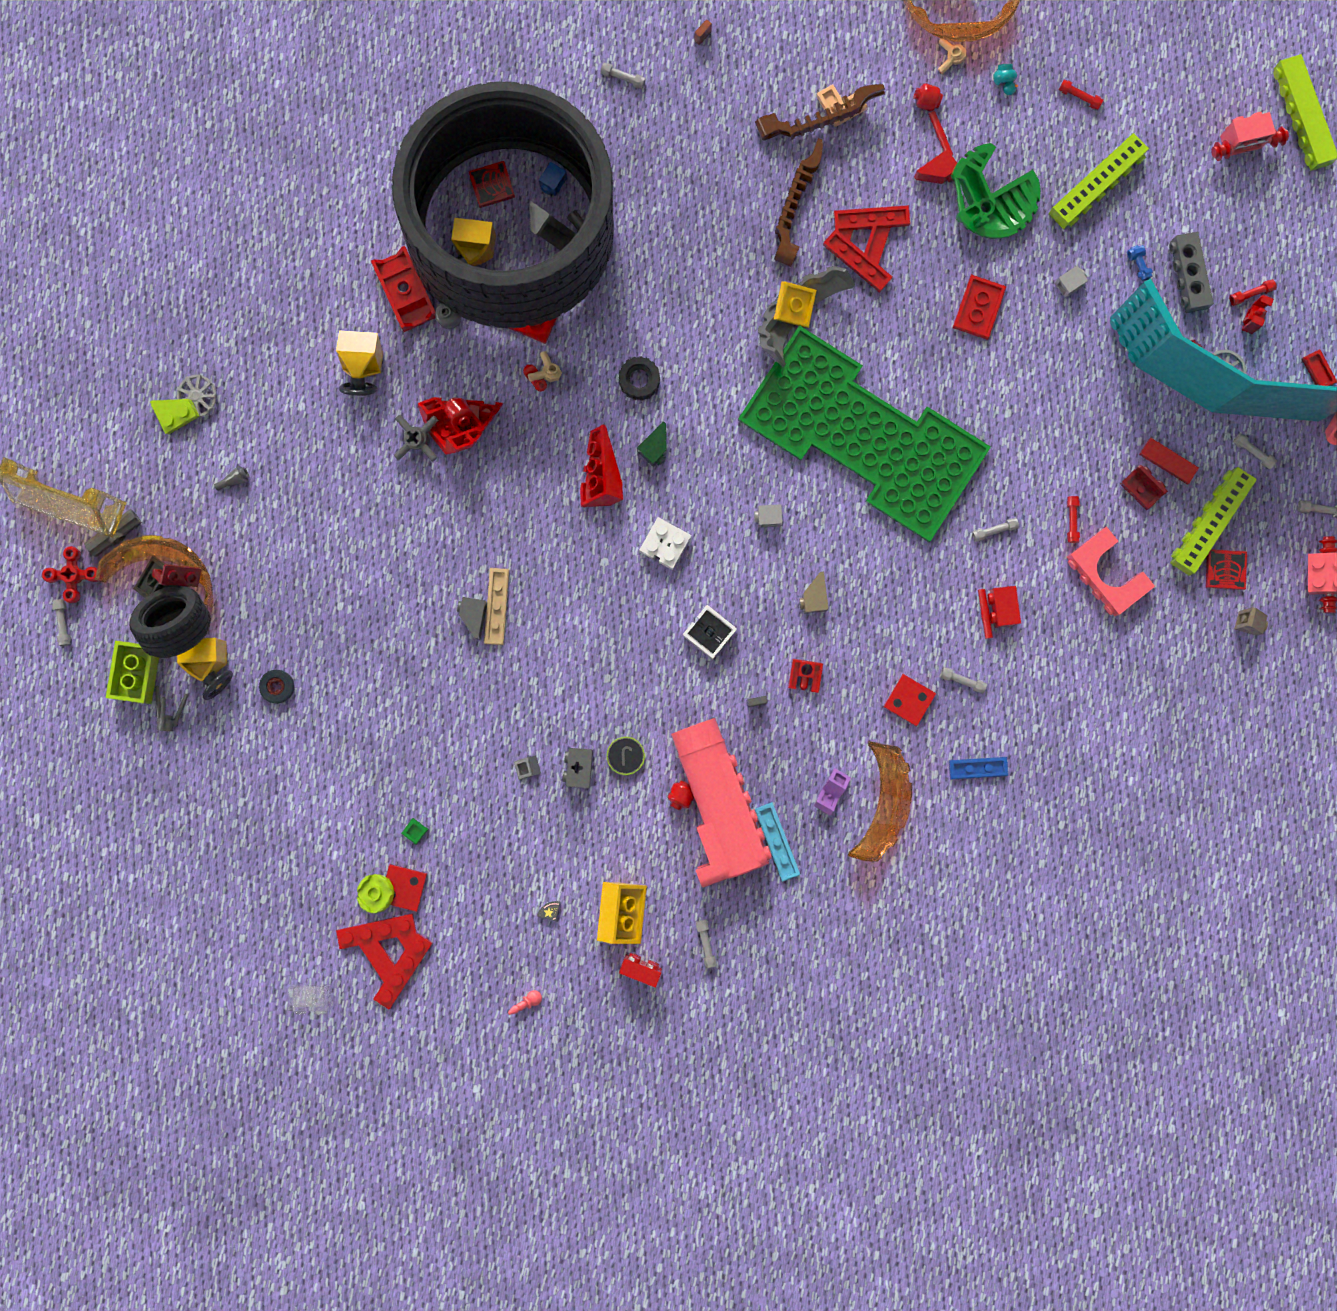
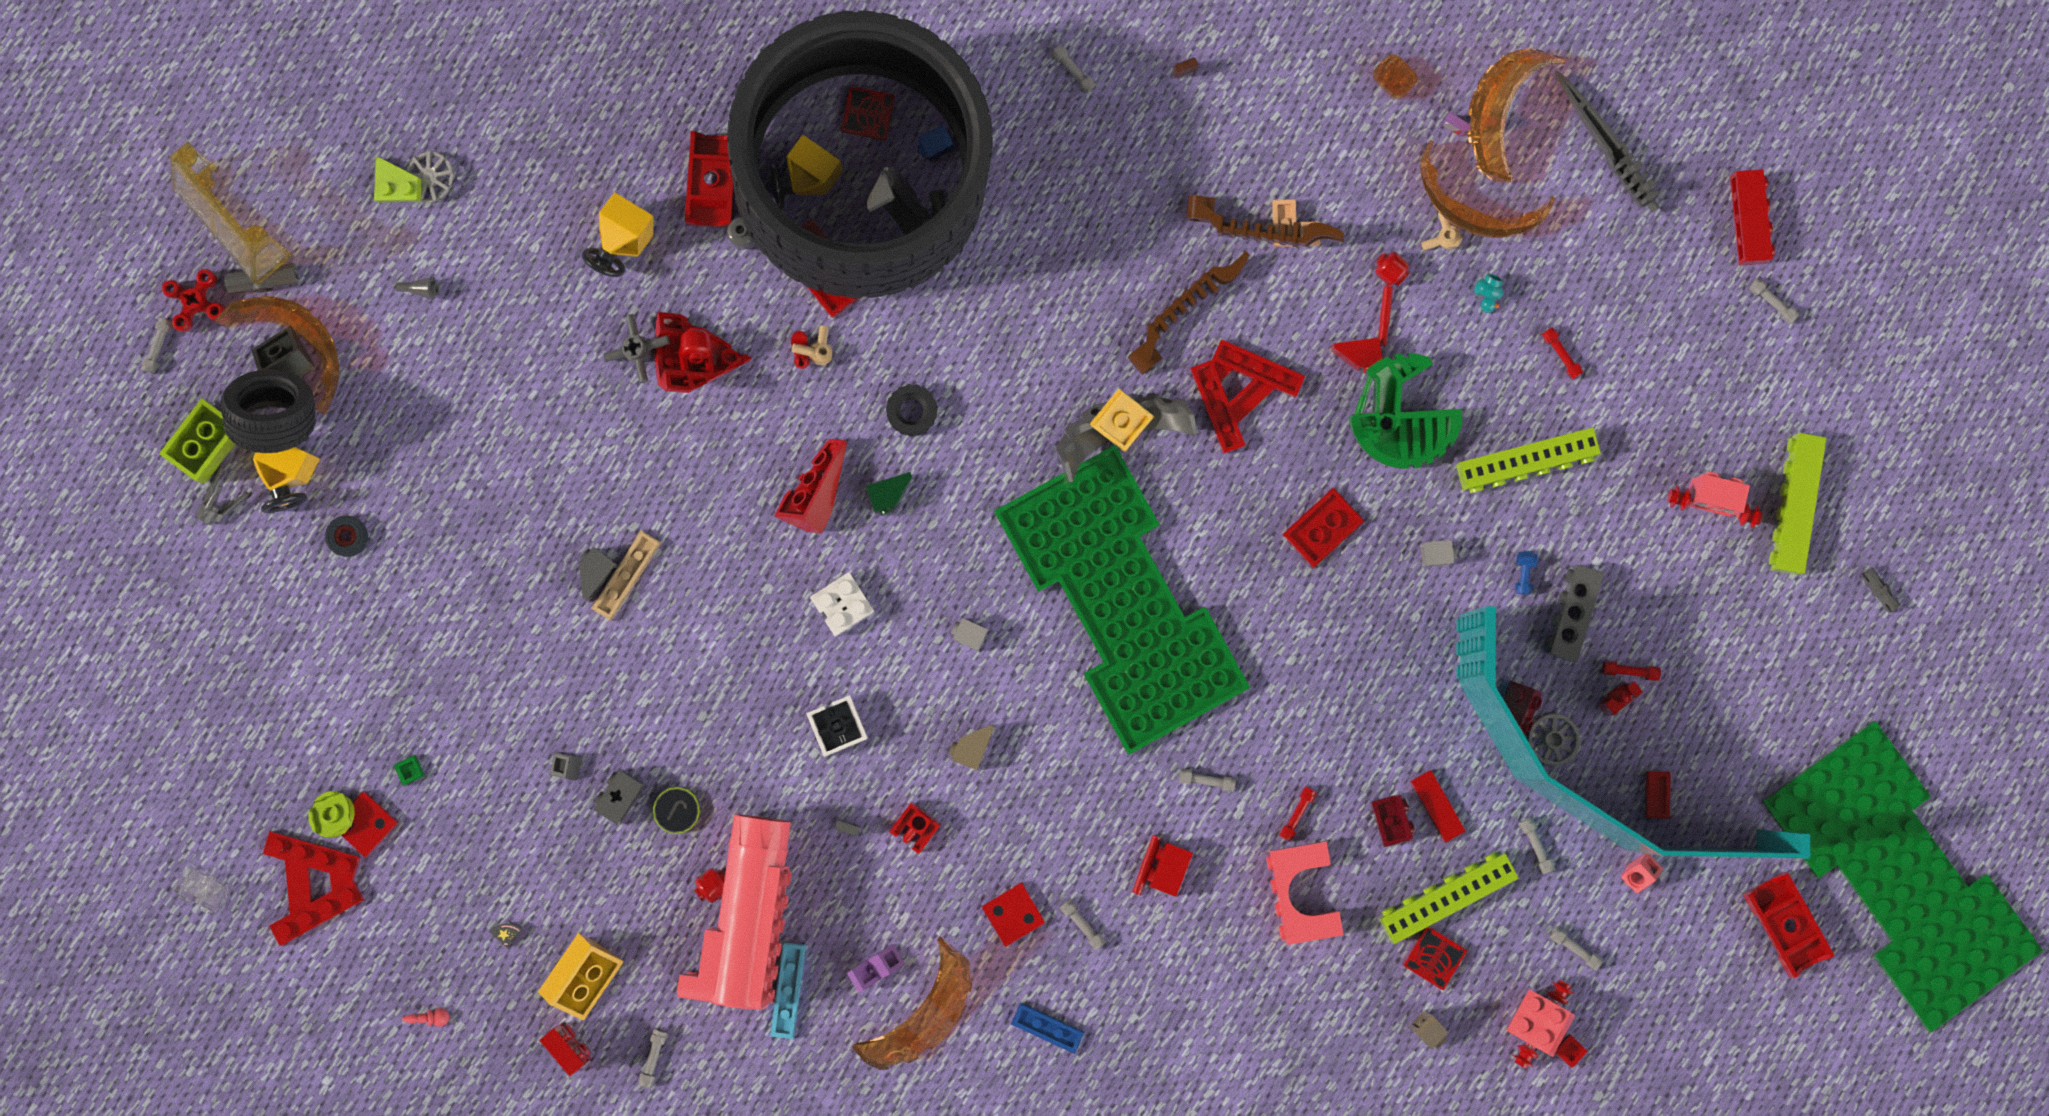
camera: 25 degrees right, 0 degrees up
(177, 575) = (302, 365): dark red bracket -> none

